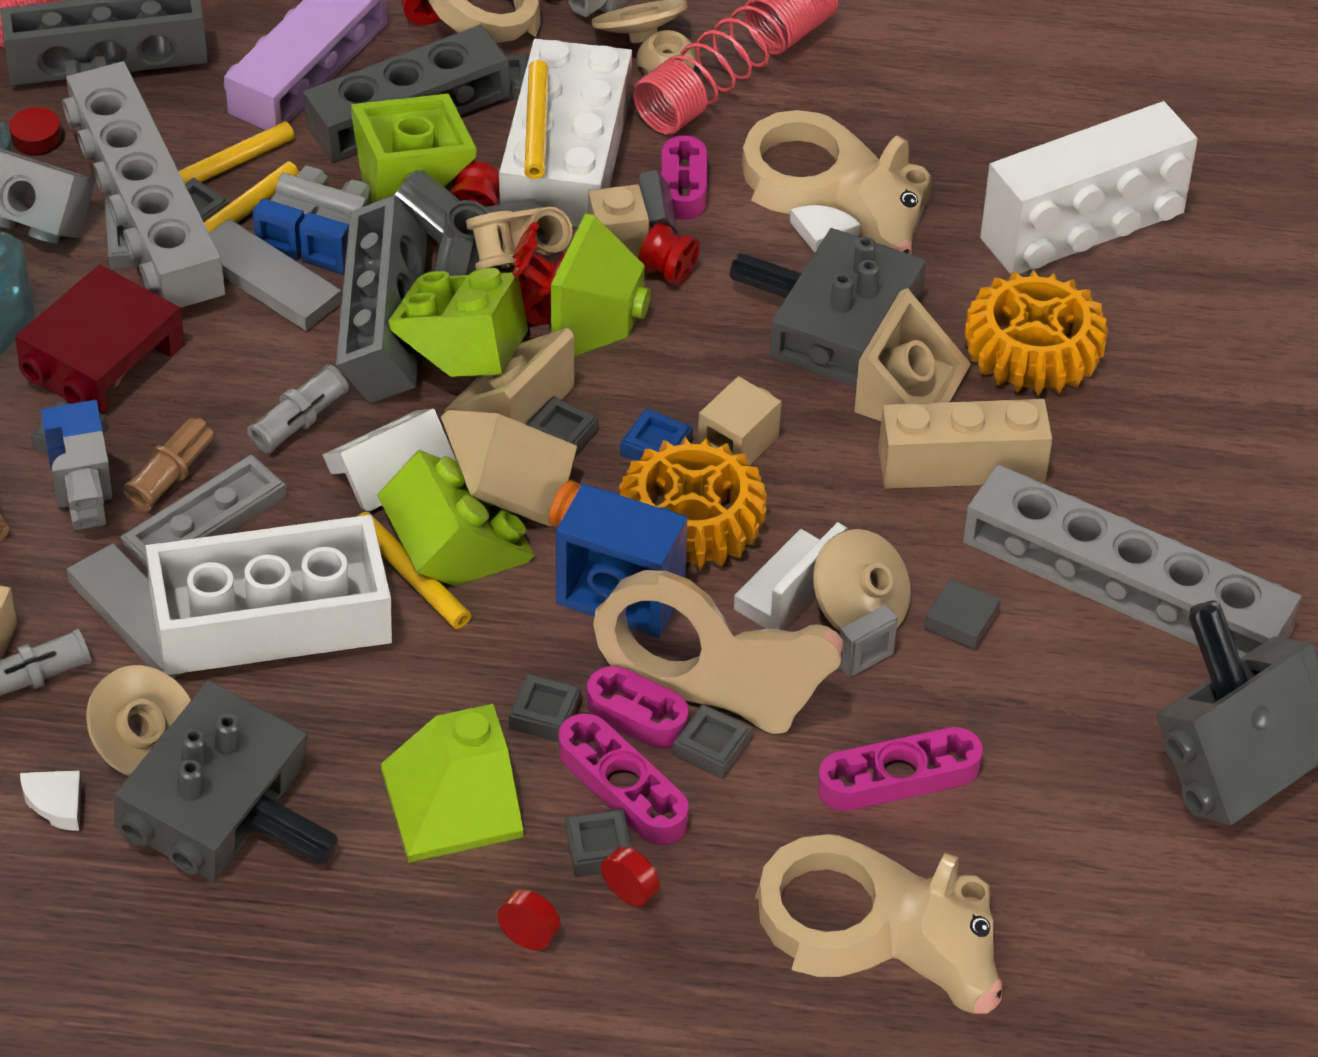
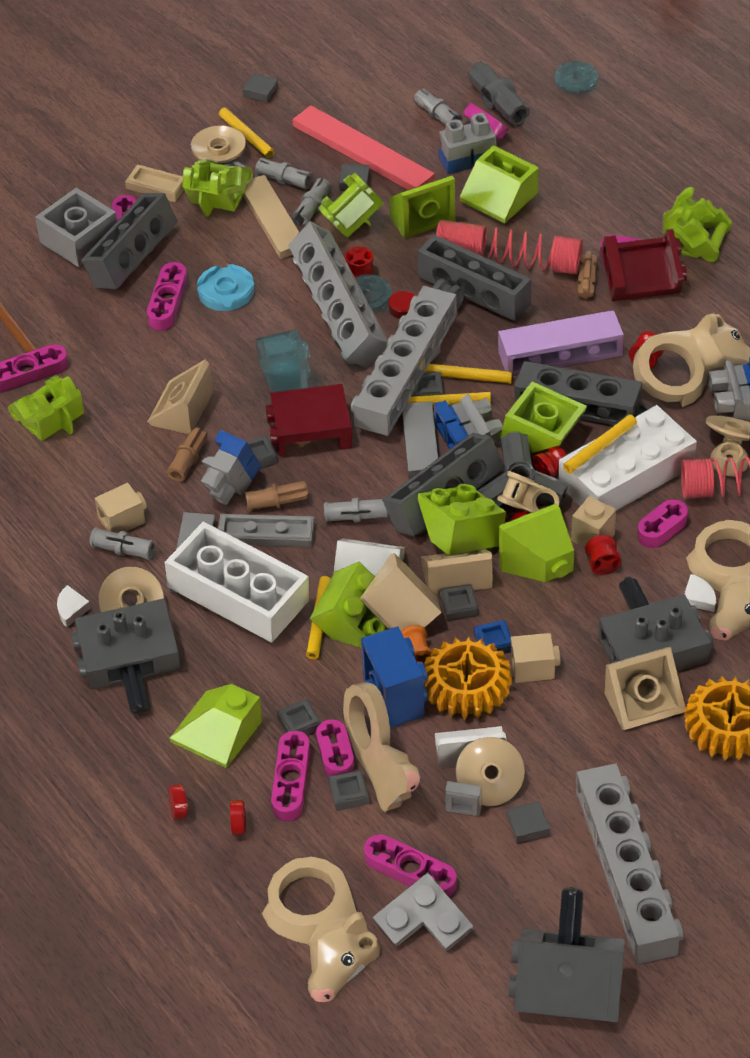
camera: 50 degrees right, 0 degrees up
(525, 252) = (515, 503): red piece -> none
(594, 838) = (252, 792): dark grey tile -> none
(657, 199) = (623, 525): dark grey tile -> none
(962, 442) = (622, 741): tan brick -> none
(986, 794) = (423, 905): none -> light grey plate

